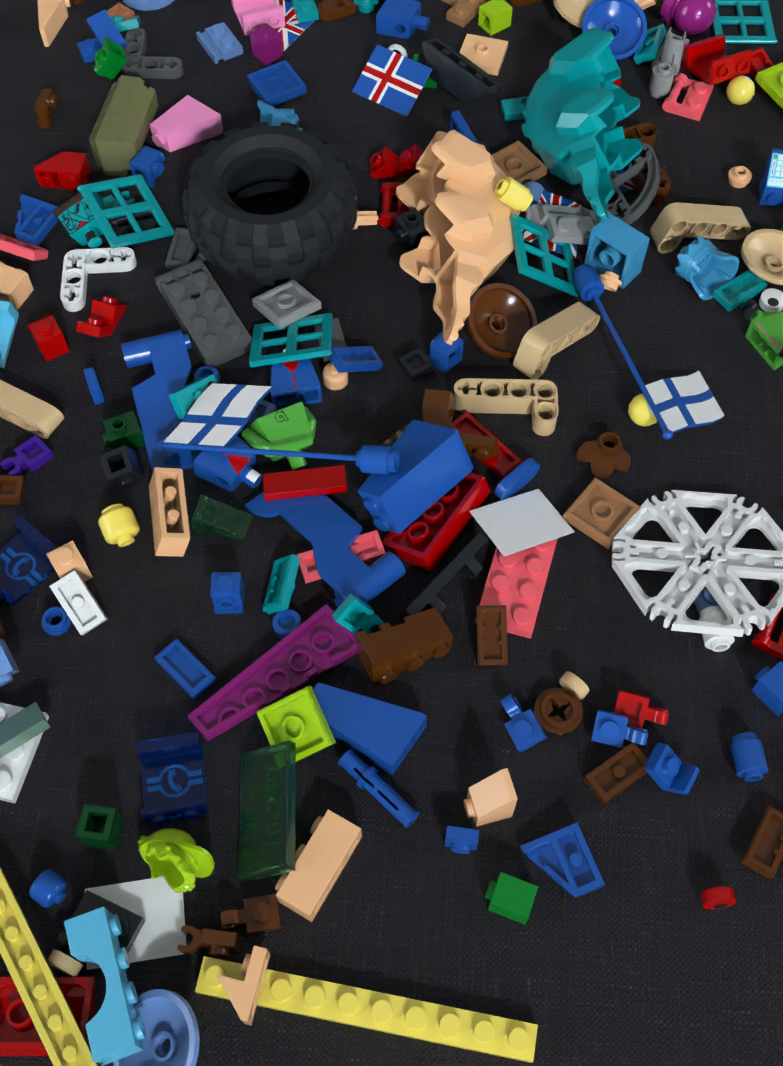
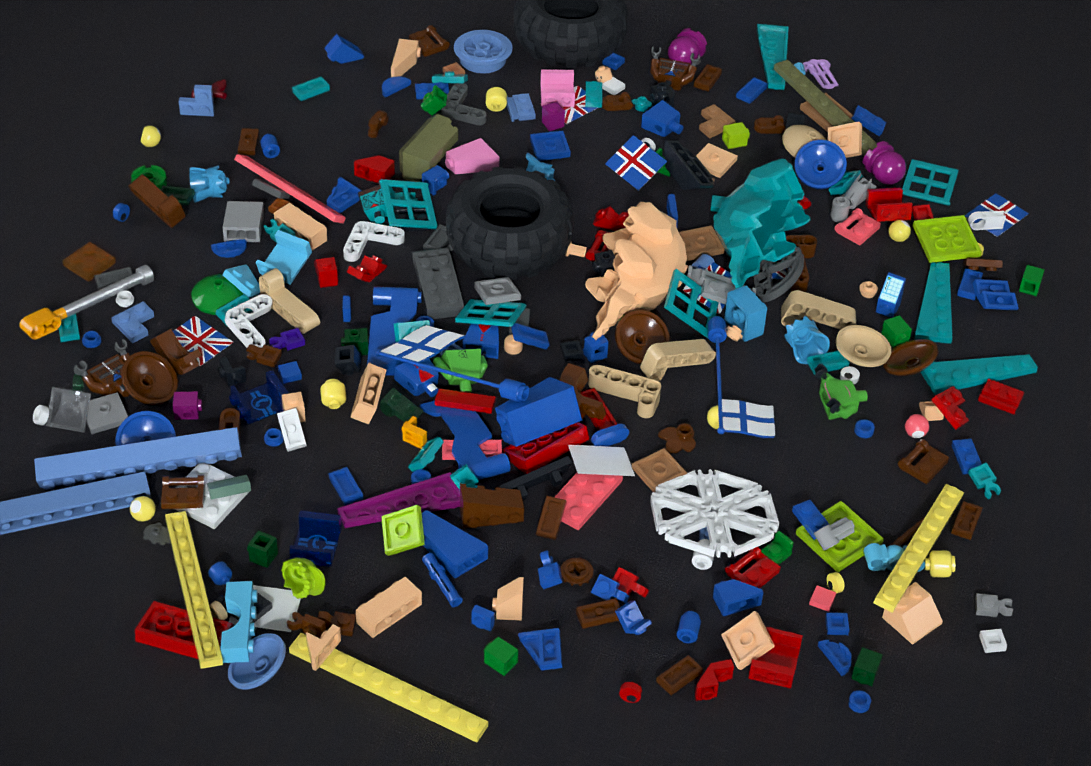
camera: 15 degrees right, 15 degrees down
(46, 506) = (289, 372): none -> blue tile
(50, 51) = (394, 85): none -> blue tile
(103, 26) = (438, 78): blue tile -> none
(187, 38) = (496, 99): none -> light yellow head
(227, 592) = (389, 449): blue brick -> none
(253, 558) = (412, 434): none -> light orange bracket
(267, 811) = (367, 569): clear green tile -> none
(513, 194) = (681, 256): light yellow brick -> none
(574, 684) = (592, 557): tan tile -> none

